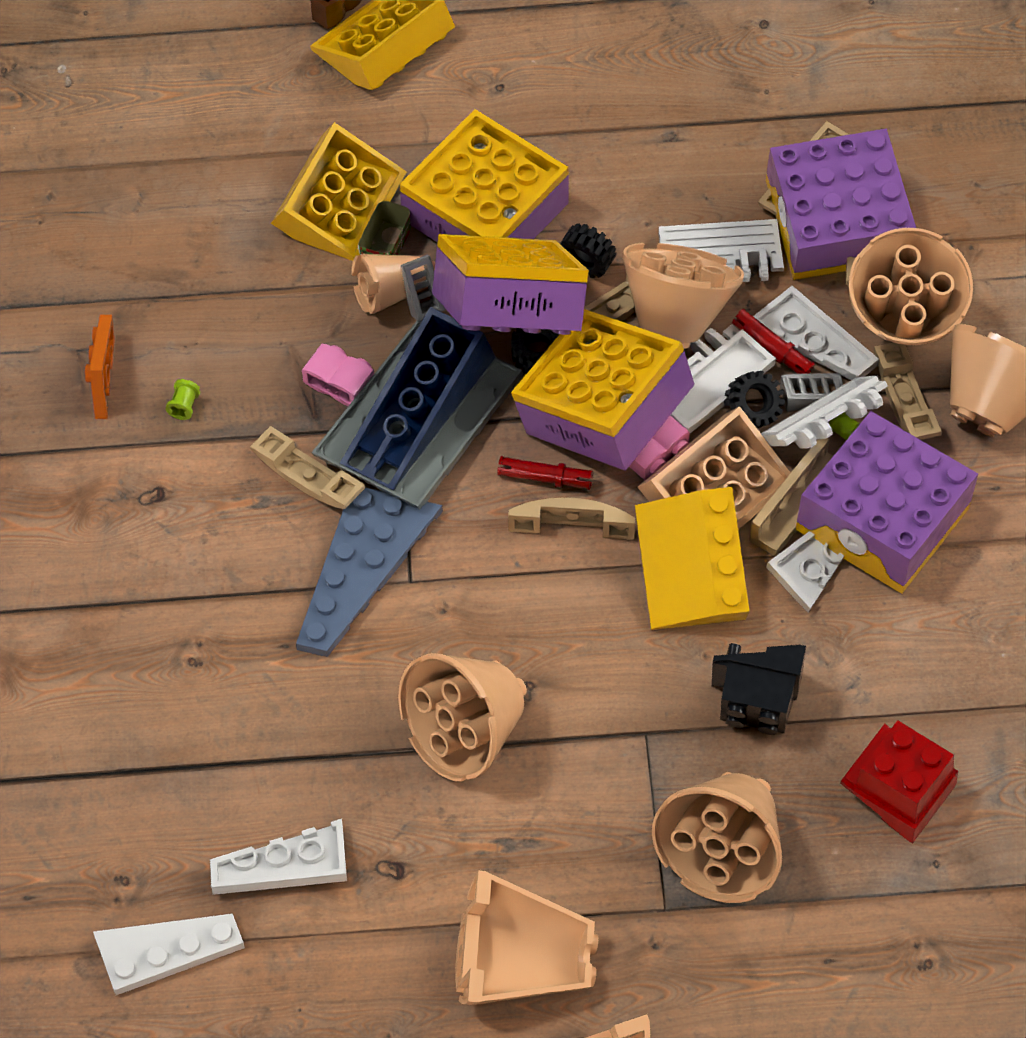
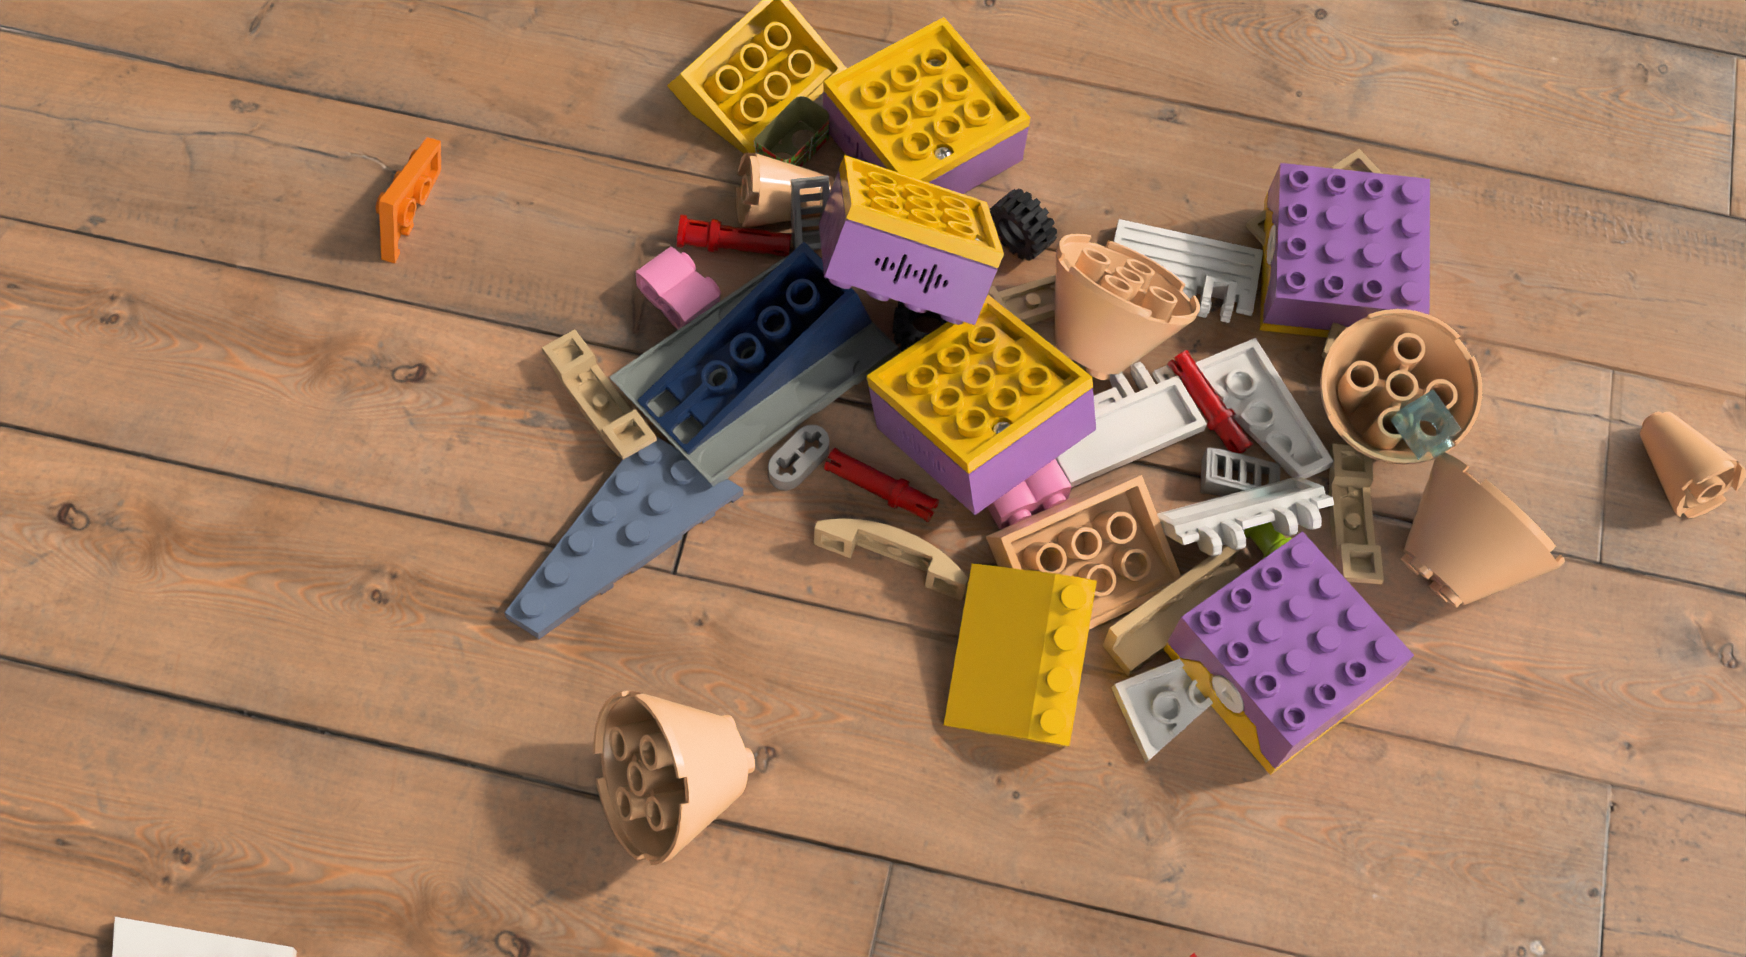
camera: 10 degrees right, 5 degrees up
(183, 399) = (487, 266): lime bush -> none
(293, 862) = (400, 902): white wing -> none
(352, 326) = (715, 236): none -> red pin
(481, 474) = (804, 463): none -> light grey beam
(759, 686) = (1049, 853): black piece -> none
(768, 390) = (1185, 463): black tyre -> none
(937, 295) = (1431, 409): none -> clear light blue brick

